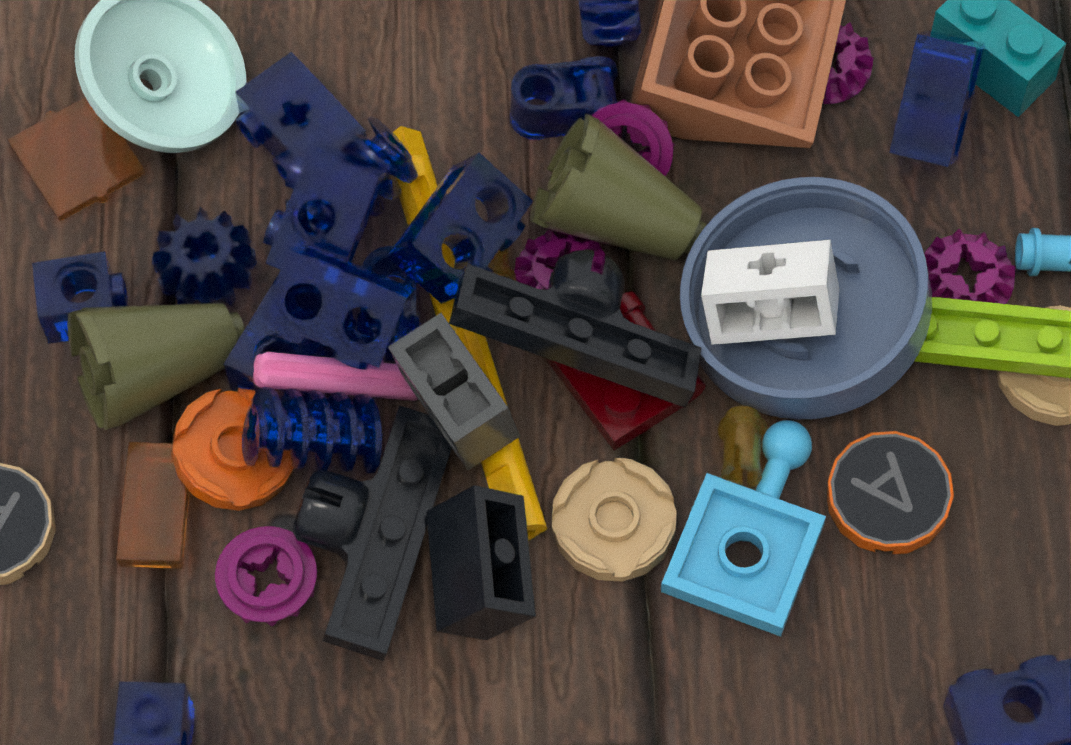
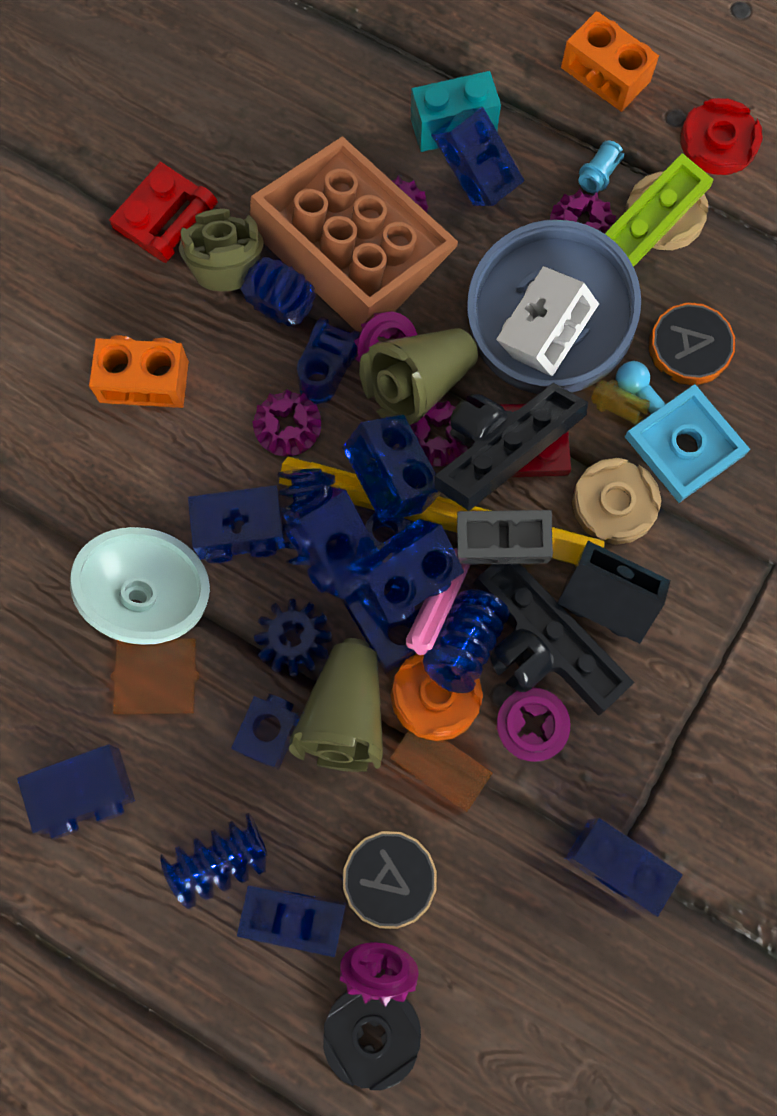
camera: 60 degrees left, 10 degrees up
(485, 119) = (291, 440): none -> magenta gear

